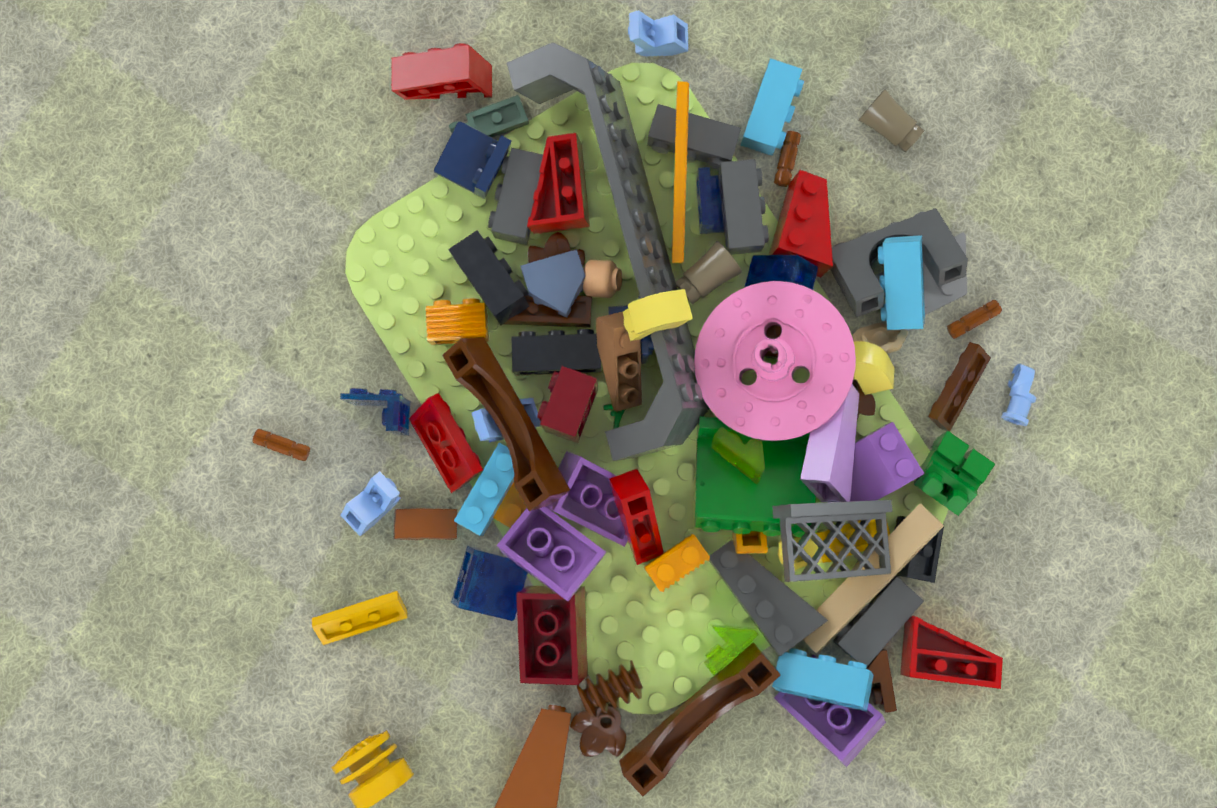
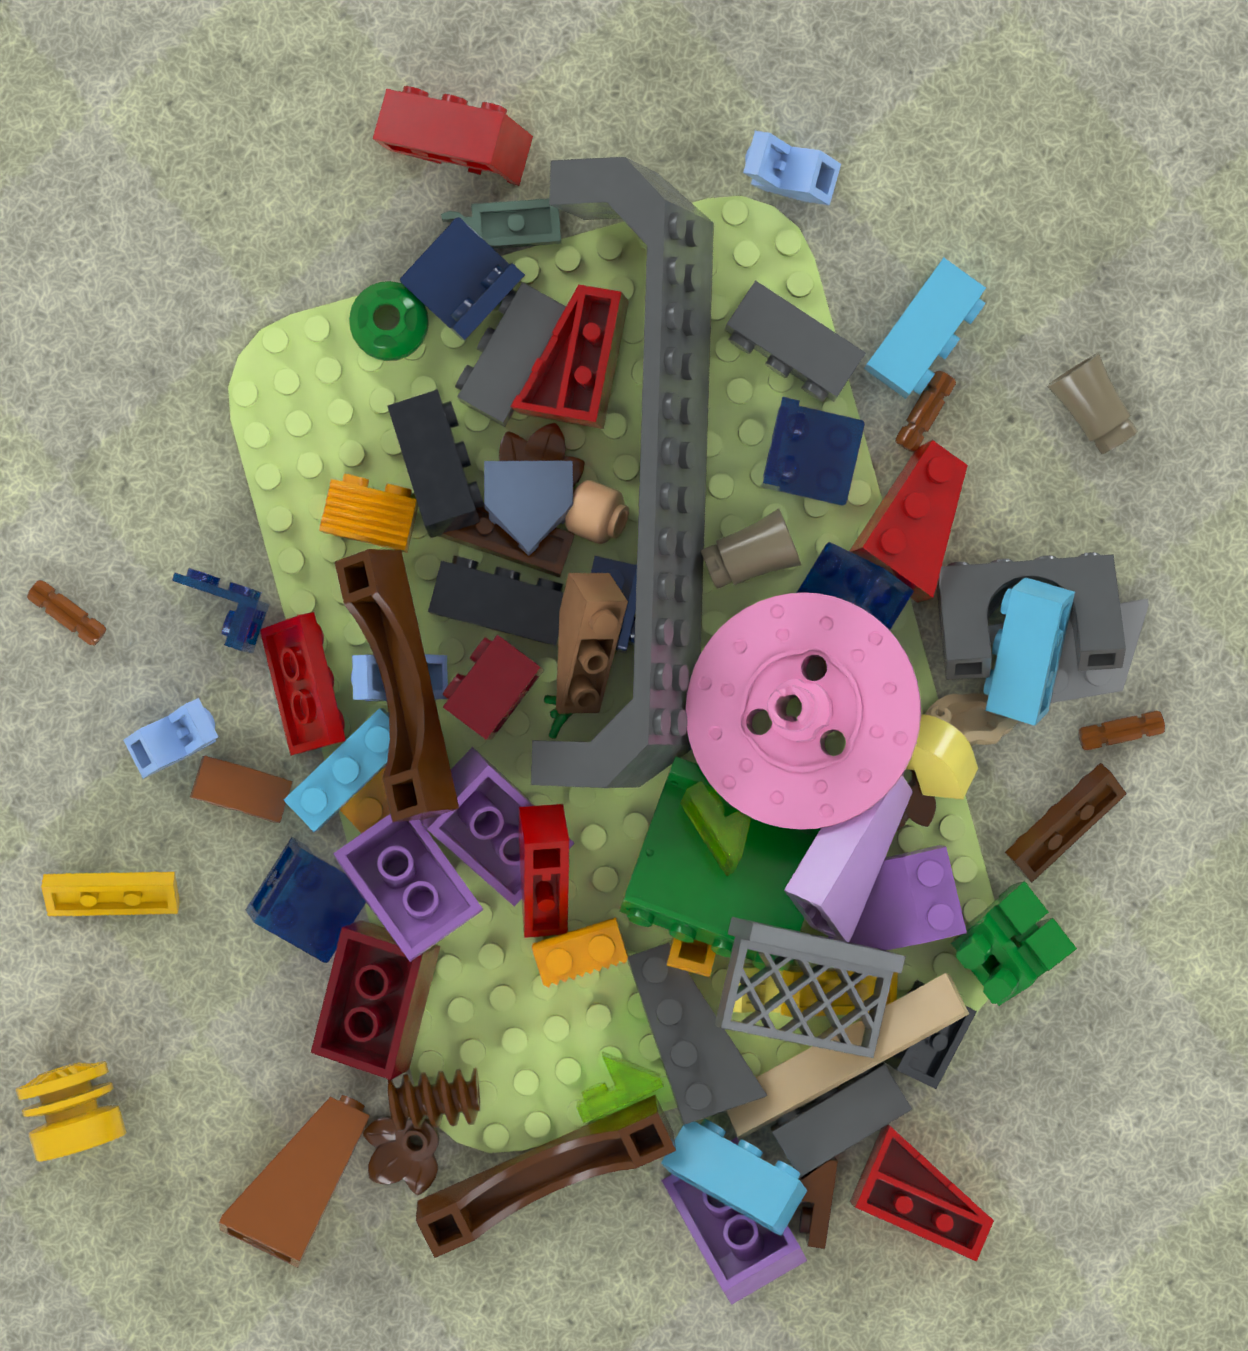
camera: 20 degrees right, 5 degrees up
(440, 212) = (393, 343): none -> green piece
(656, 313) = (651, 602): light yellow brick -> none
(680, 173) = (755, 395): light orange tile -> none
(742, 206) = (831, 470): dark grey brick -> none
(1020, 396) = (1147, 868): light blue connector -> none

